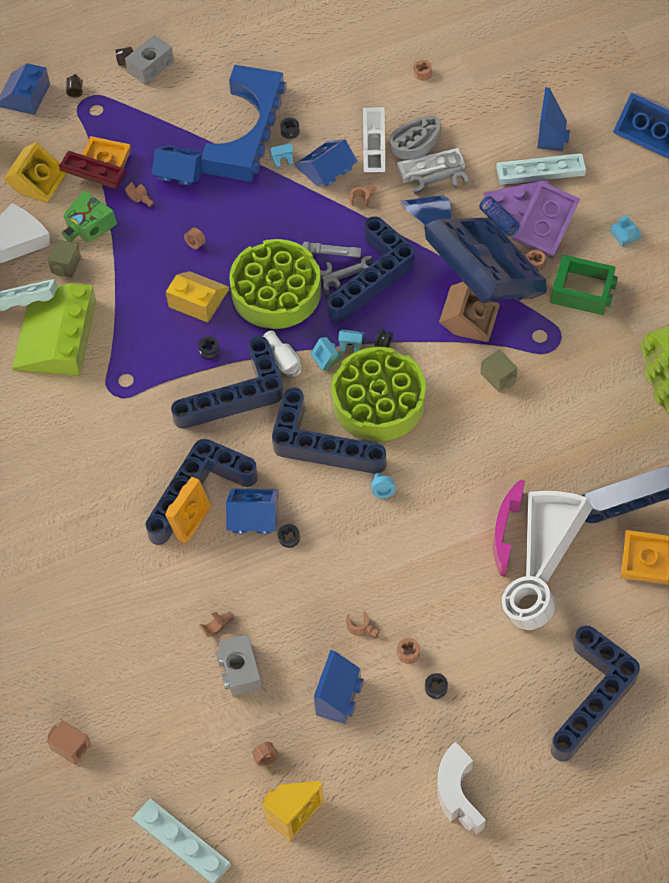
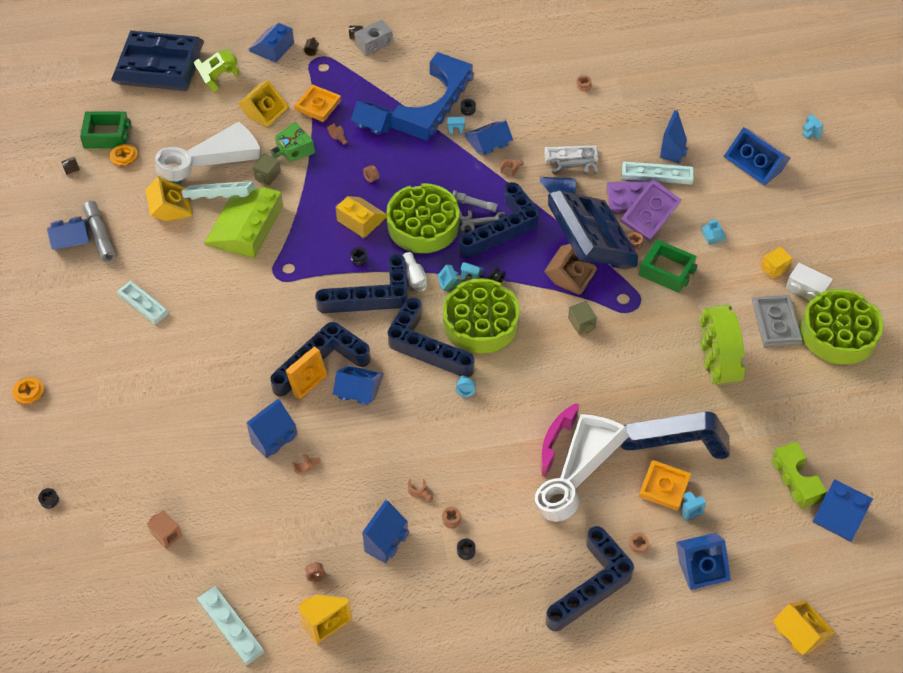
camera: 10 degrees right, 5 degrees down
(92, 169) = (306, 108): dark red tile -> none
(165, 590) = (271, 429): none -> blue slope
(238, 651) = (316, 510): light grey brick -> none
(285, 529) = (380, 404): black bush -> none
(374, 139) = (531, 126): white arch -> none
(415, 138) = (564, 131): light grey piece -> none
(451, 772) = (457, 621): white arch -> none
(507, 224) = (617, 199): blue piece -> none
(635, 626) = (638, 536): none -> nougat bush

